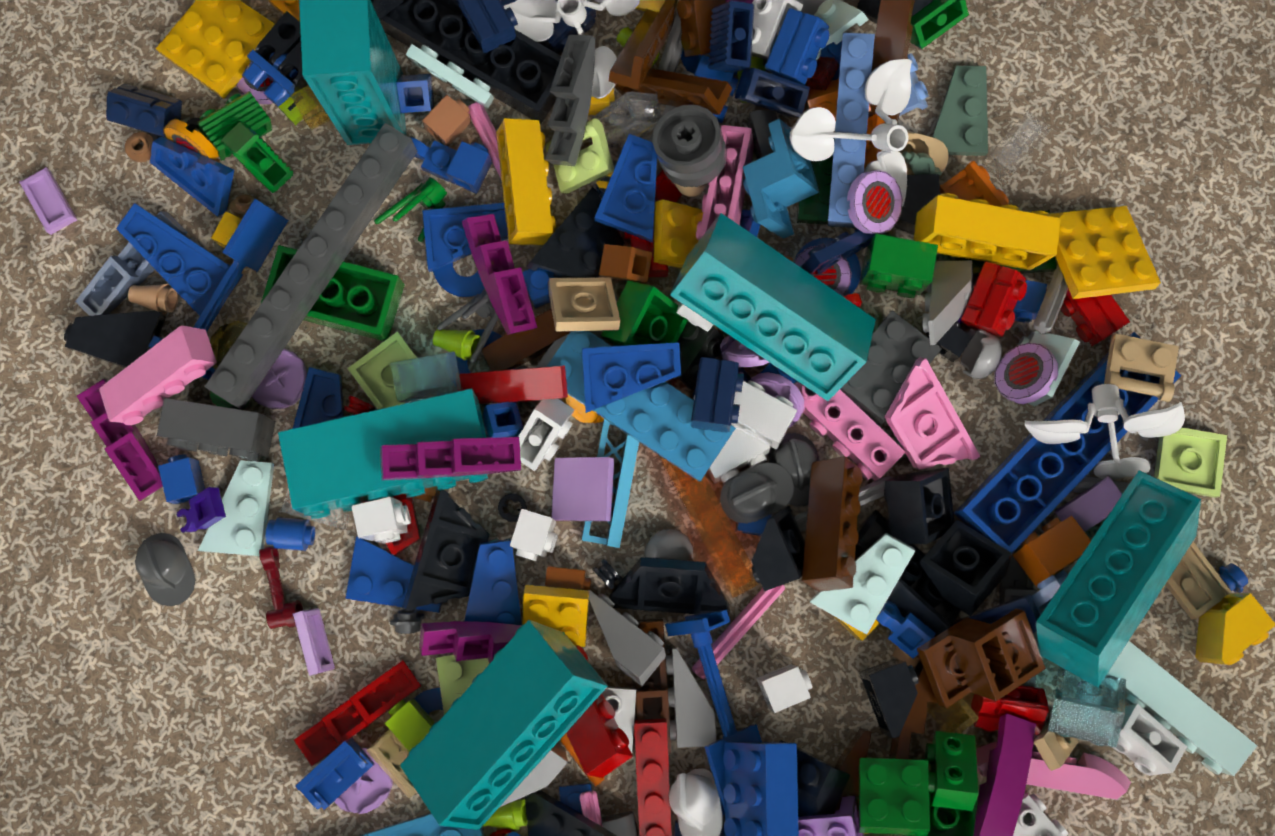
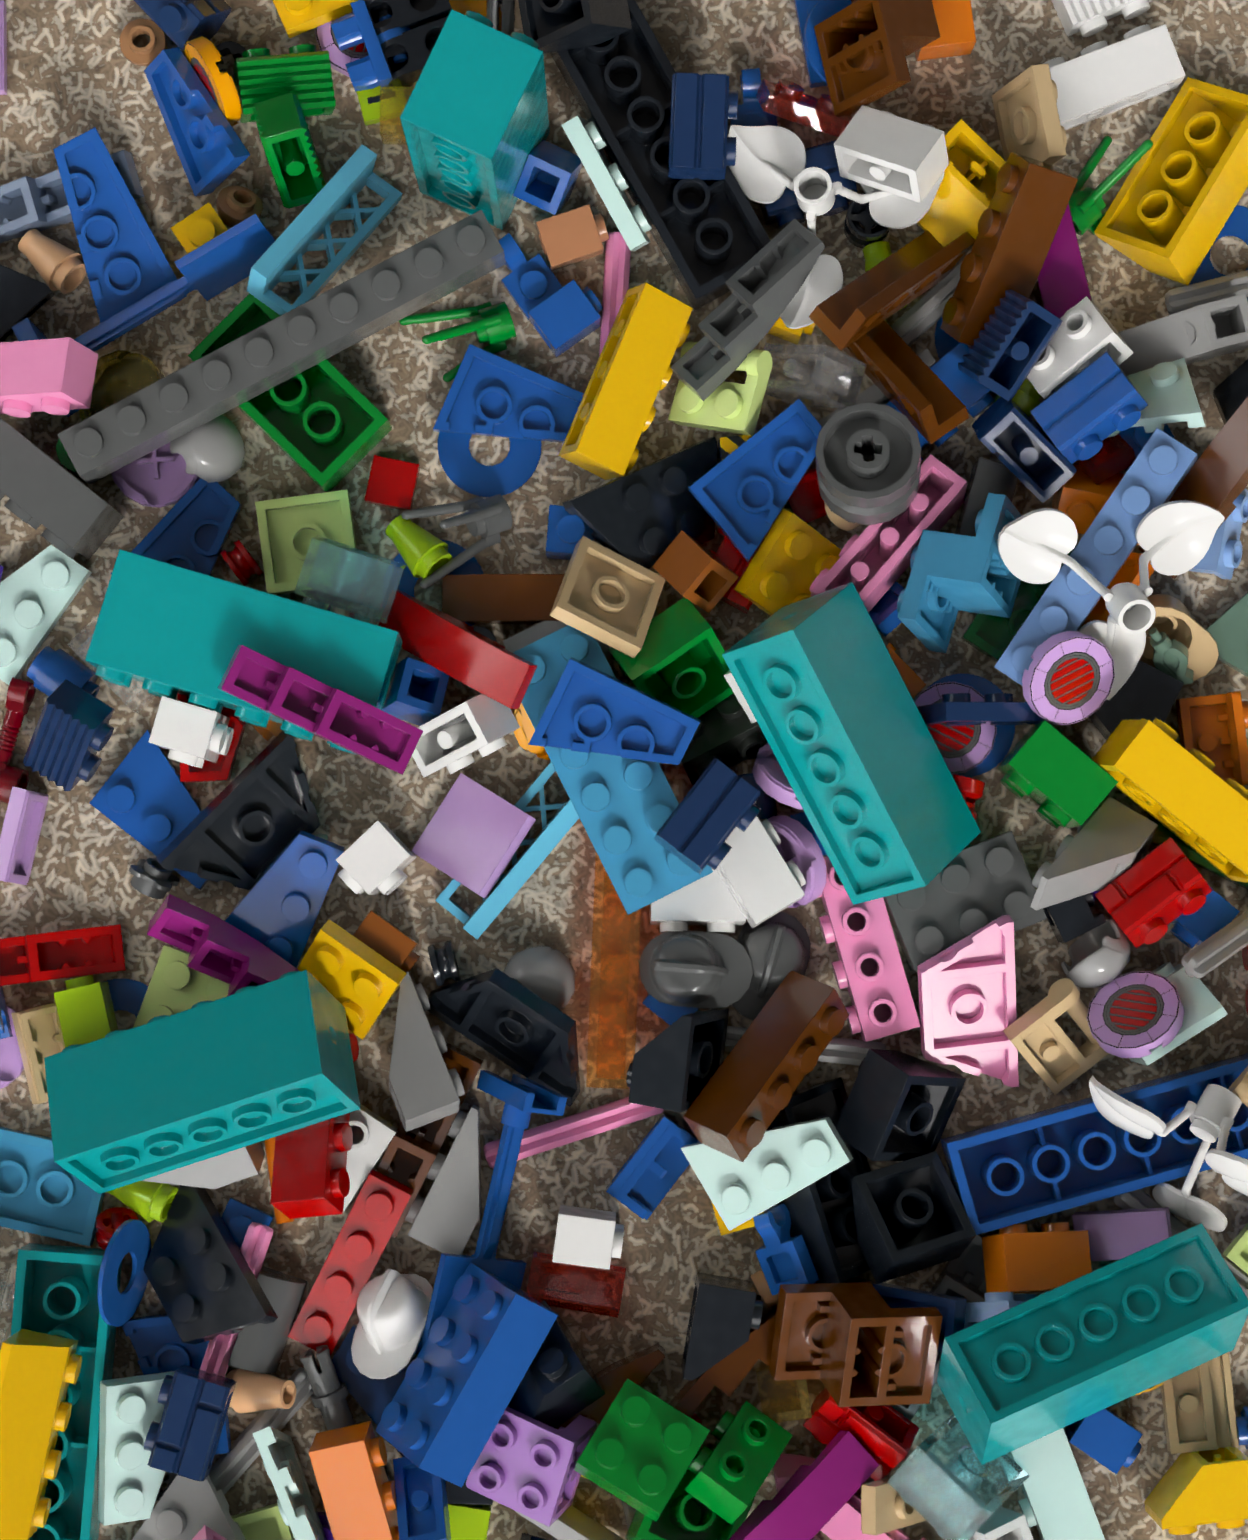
camera: 25 degrees right, 5 degrees up
(293, 190) = (313, 222): none -> medium azure fence
(304, 352) = (211, 450): none -> light grey hair
(311, 564) = (69, 736): none -> dark blue brick
(421, 315) = (392, 483): none -> red tile
(499, 276) = (520, 491): magenta slope -> none
(502, 503) = (379, 796): black bush -> none
(606, 32) = (855, 233): none -> black wheel
(794, 720) = (576, 1286): none -> clear red plate
(797, 624) = (652, 1168): none -> blue hinge
(984, 421) = (1045, 1042): none -> tan plate
(1156, 632) = (1106, 1439): none -> blue brick

